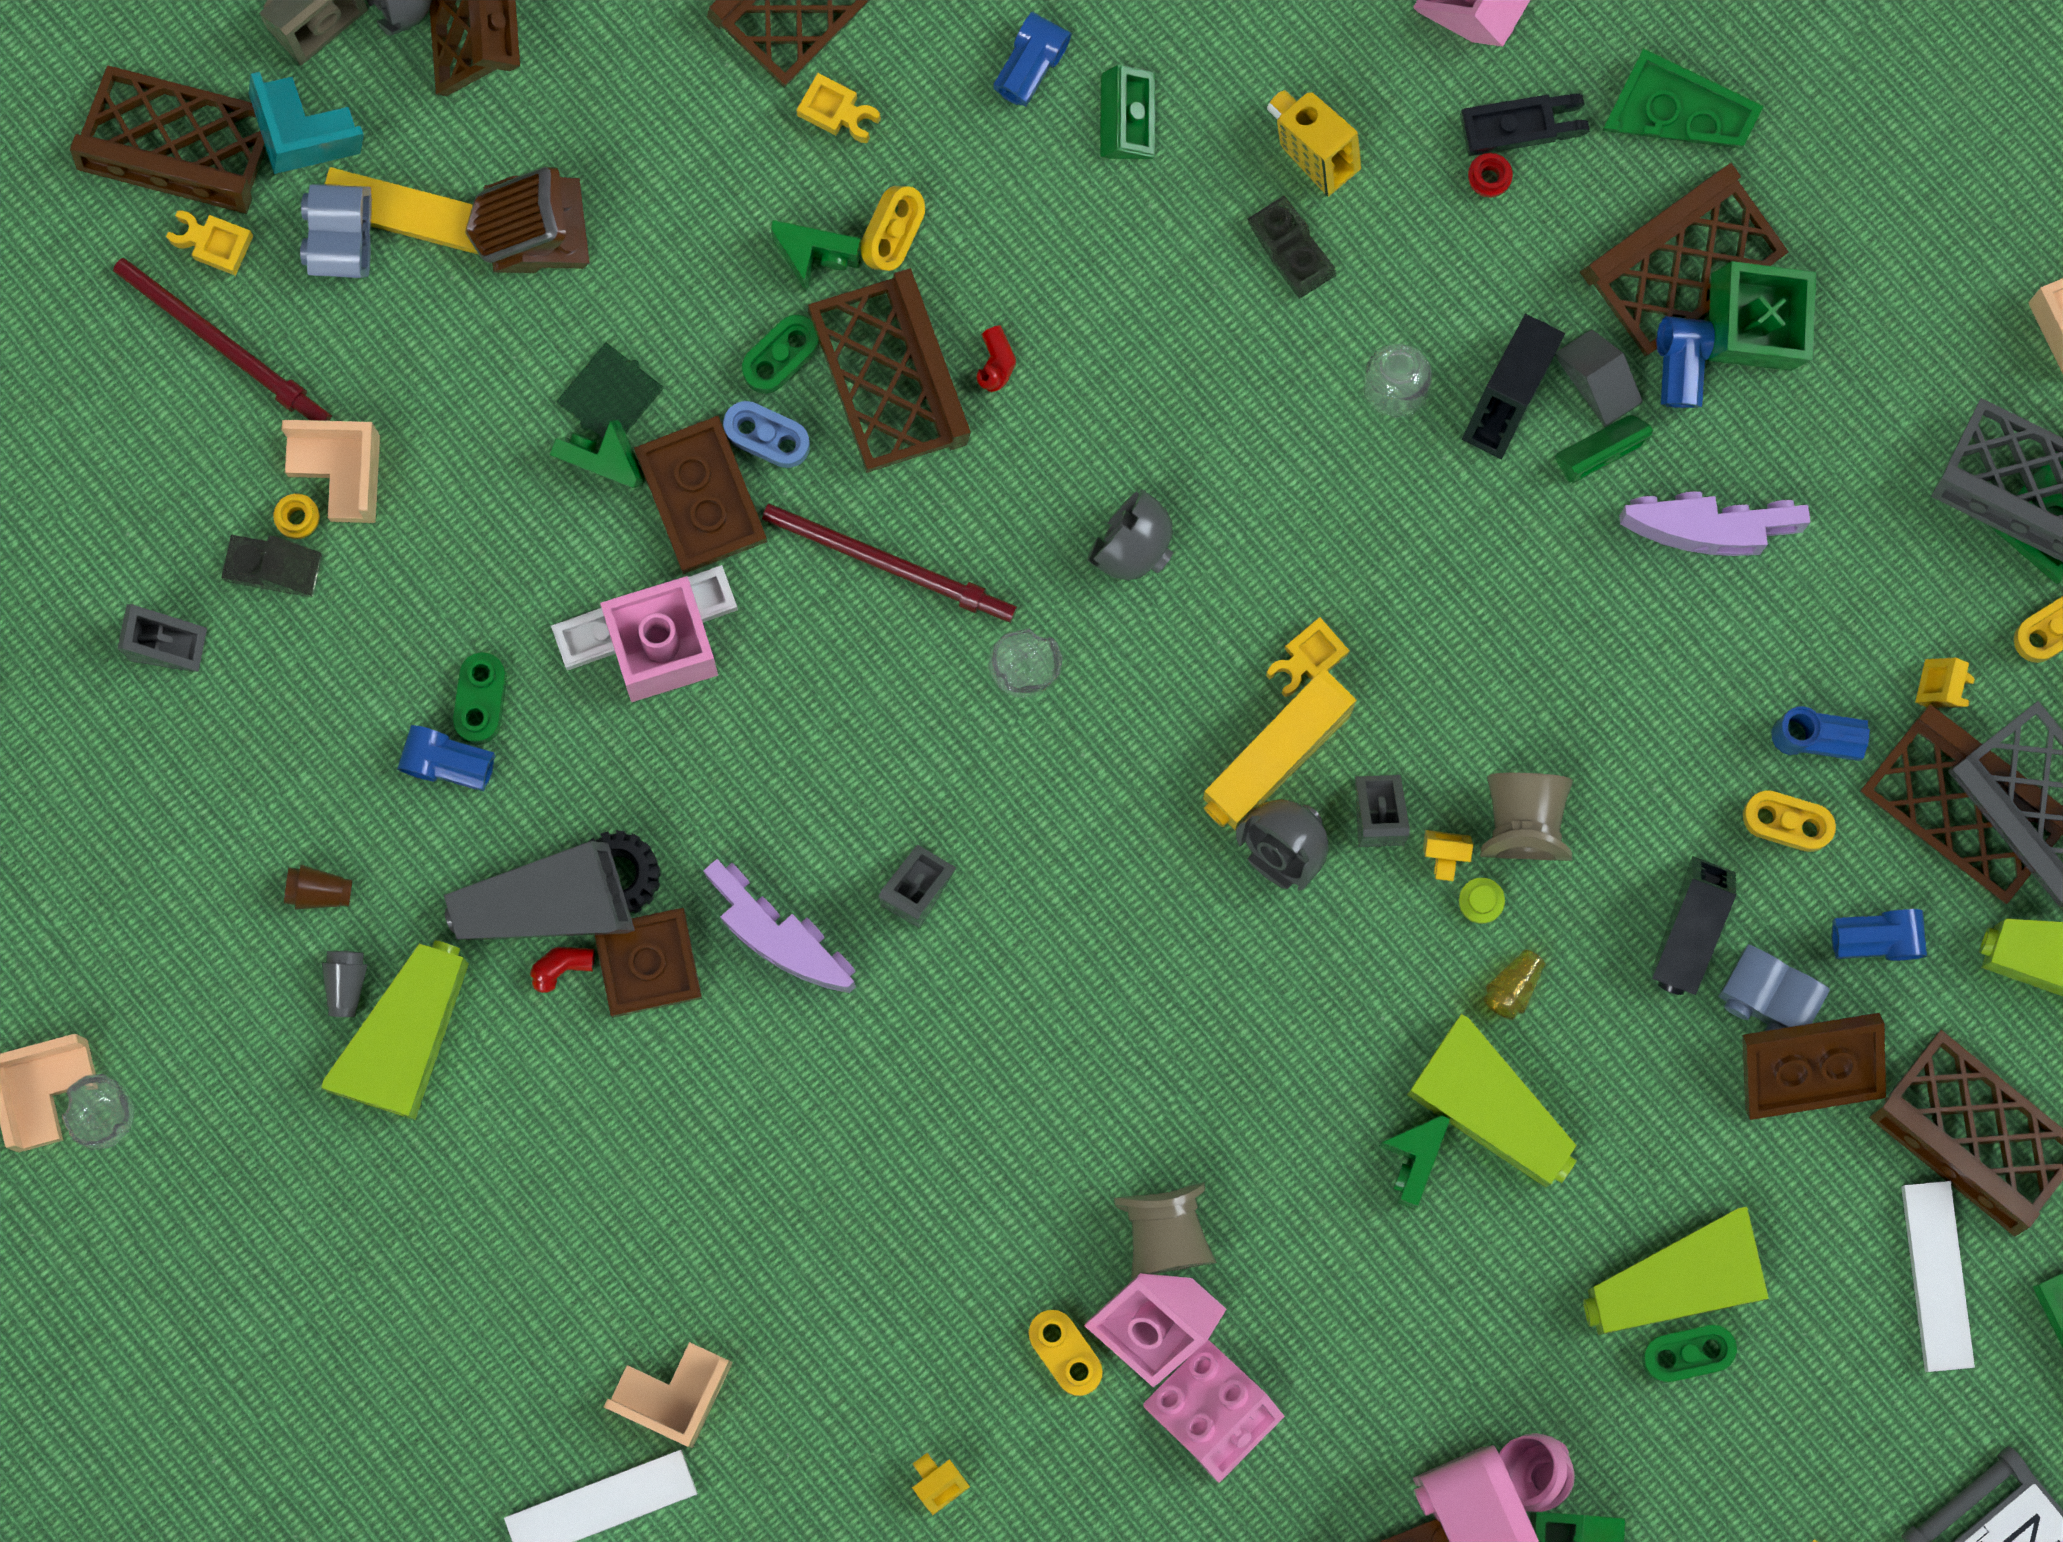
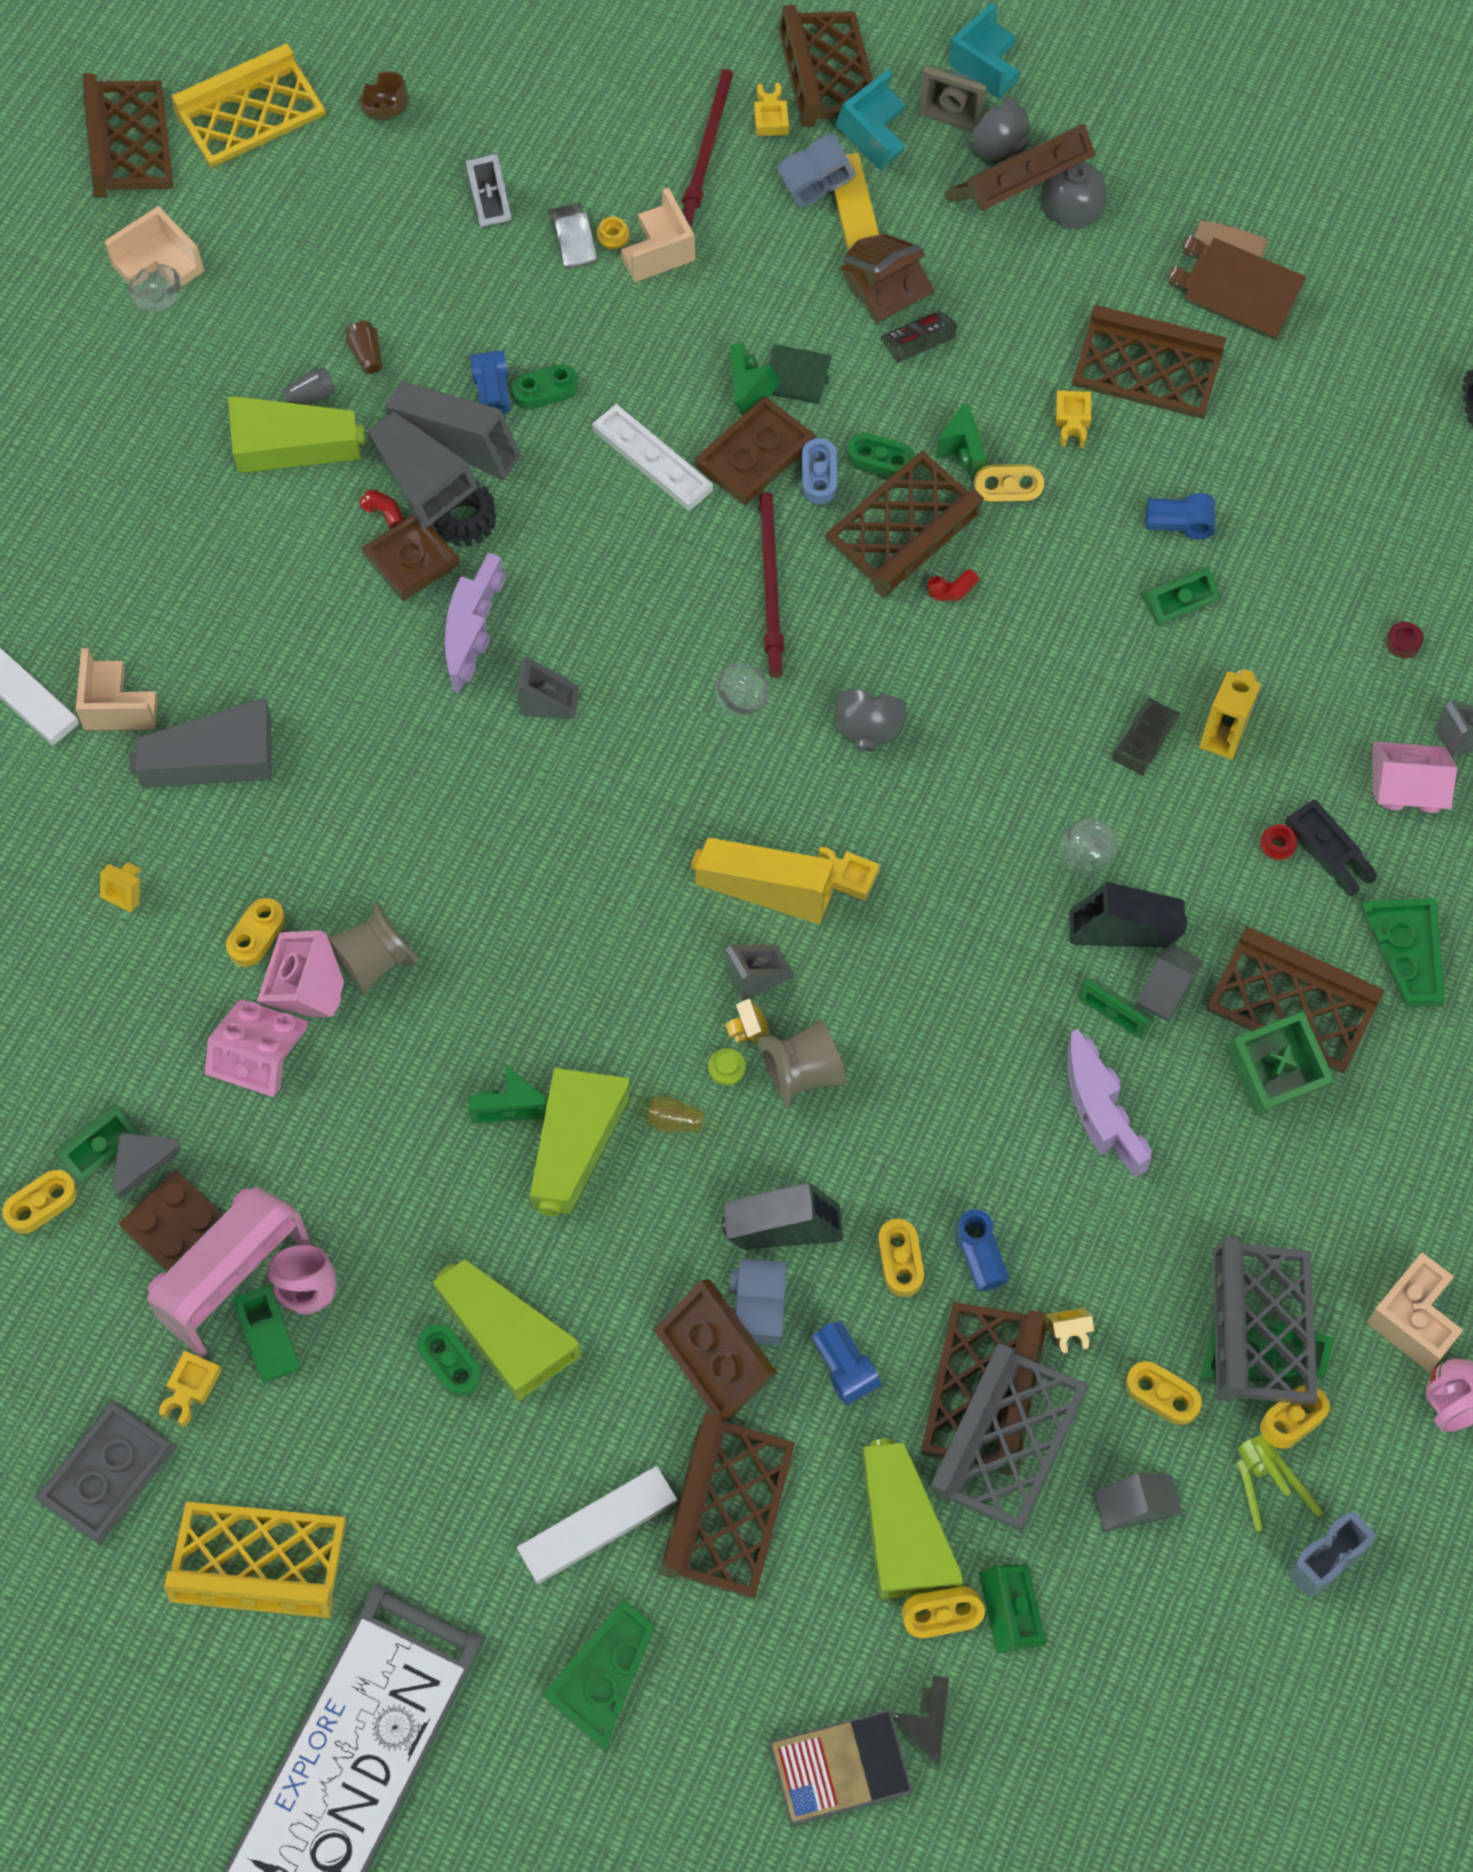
camera: 65 degrees right, 15 degrees down
(495, 834) = (462, 426): none -> dark grey slope
(629, 226) = (919, 336): none -> clear smoke slope
(659, 639) = (636, 462): bright pink slope -> none
(805, 1303) = (208, 750): none -> dark grey slope
(1285, 842) = (702, 910): dark grey cylinder -> none
(1685, 348) = (1213, 1029): blue piece -> none

